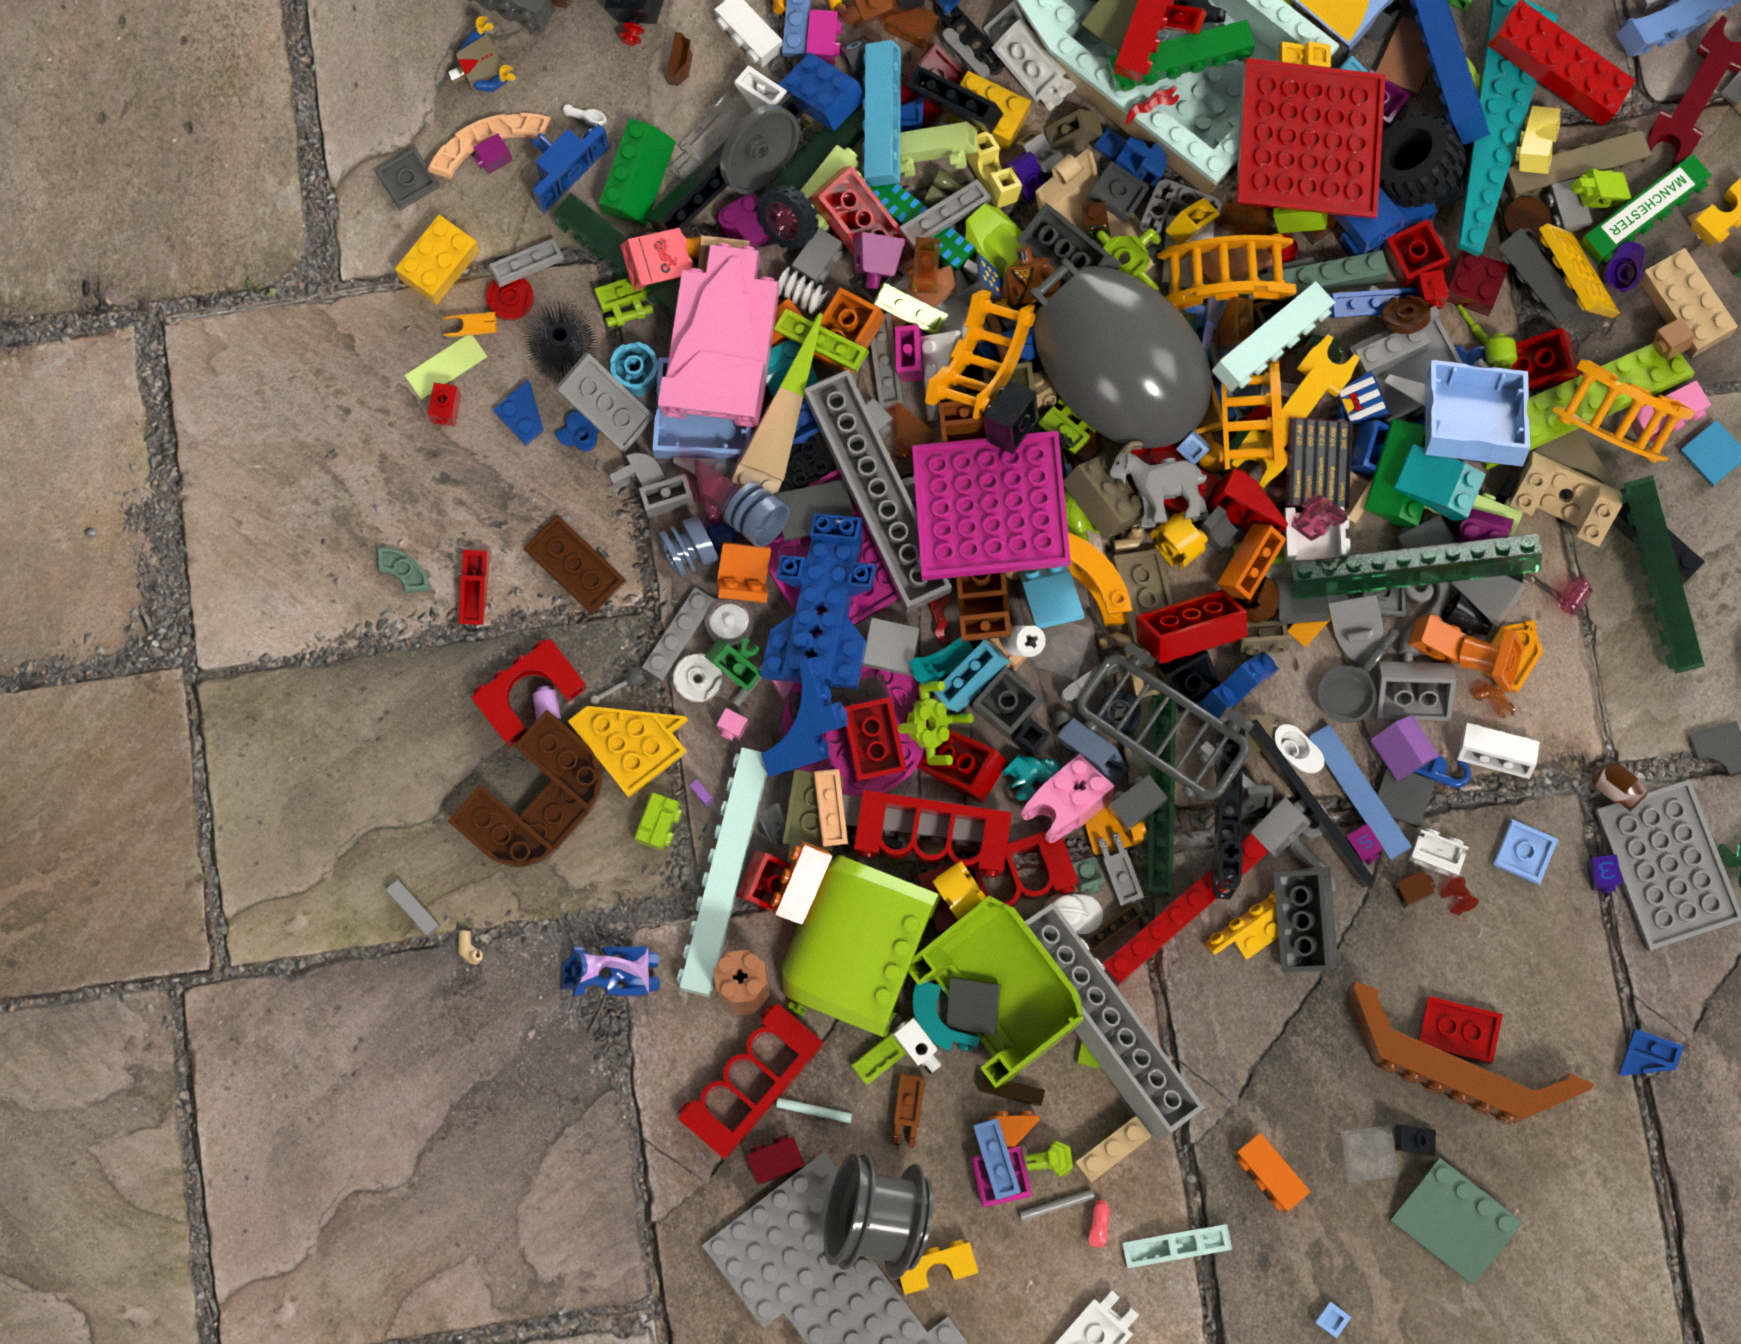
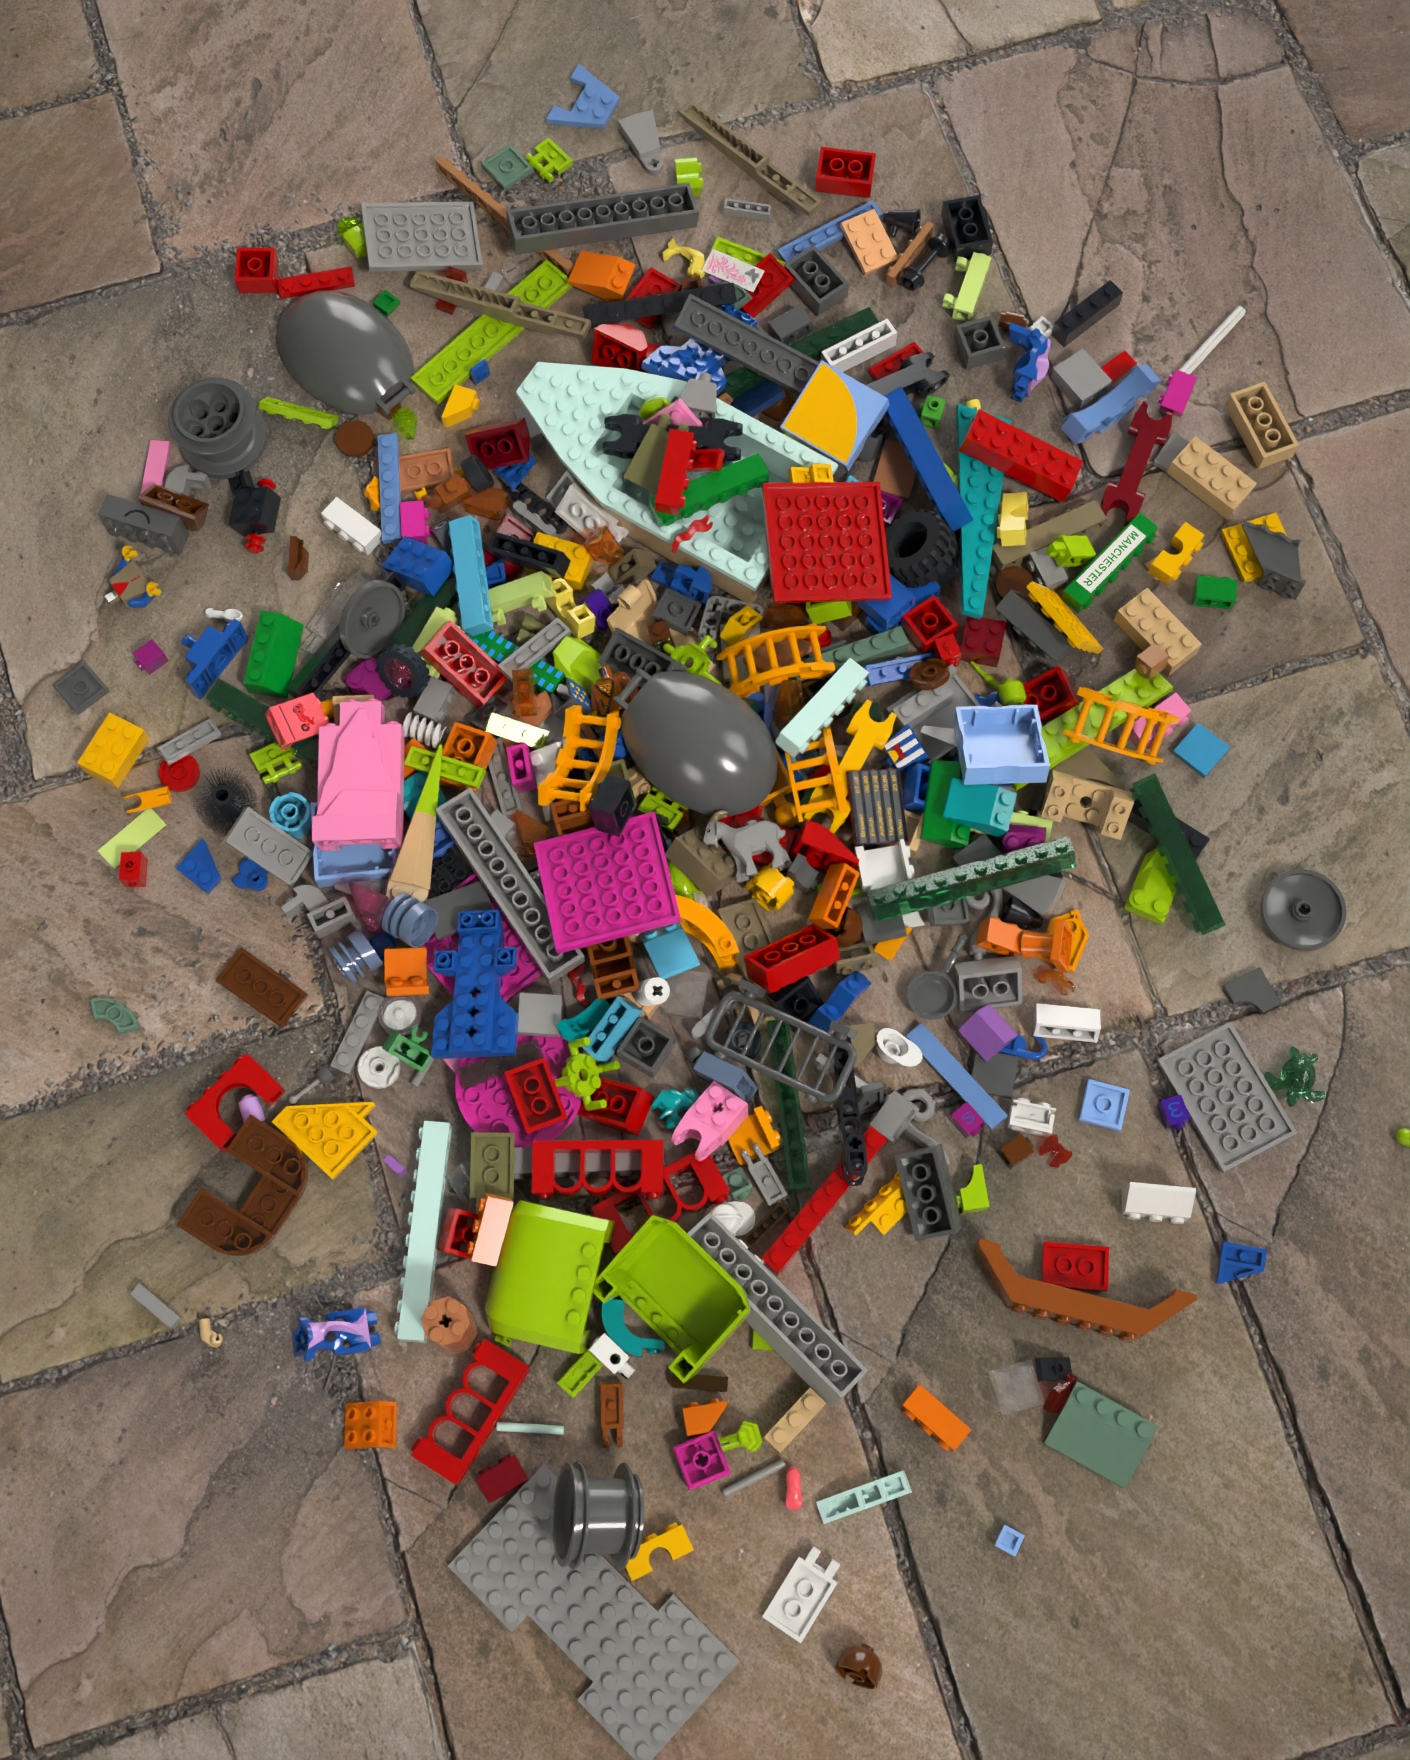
camera: 10 degrees left, 5 degrees down
(462, 145) = (119, 659): light nougat tile -> none
(474, 586) = (176, 1019): red slope -> none
(636, 1077) = (370, 1425): none -> orange bracket
(658, 822) = (361, 1196): lime brick -> none
(732, 725) = (414, 1103): bright pink plate -> none
(758, 89) = (364, 570): white slope -> none
(816, 715) = (482, 1084): blue arch -> none
(830, 807) = (506, 1160): light nougat tile -> none
(876, 256) = (481, 692): torso -> none
(959, 890) = (627, 1214): yellow brick -> none
(973, 1005) = (655, 1313): dark grey tile -> none
(996, 1159) = (694, 1446): medium blue plate -> none
(1032, 738) = (671, 1074): black brick -> none
(1044, 100) = (603, 546): none -> clear orange slope
(1132, 541) = (732, 894): tan arm -> none
(1137, 802) = (768, 1114): dark grey brick -> none
(1193, 447) = (770, 809): light blue plate -> none
(1311, 805) = (916, 1093): black tile -> none
(1318, 516) = (882, 850): clear pink cylinder -> none
(1357, 626) = (931, 937): light grey shield -> none
(1357, 932) = (974, 1196): none -> lime arch
(1417, 1169) = (1059, 1394): none -> clear red tile
(1567, 972) = (1157, 1202): none -> white slope
(1575, 596) = (1108, 884): clear pink brick -> none
(1620, 785) = (1173, 1036): reddish brown slope -> none
(1625, 267) = (1102, 610): dark purple piece -> none
(1626, 610) = (1152, 889): none -> lime slope

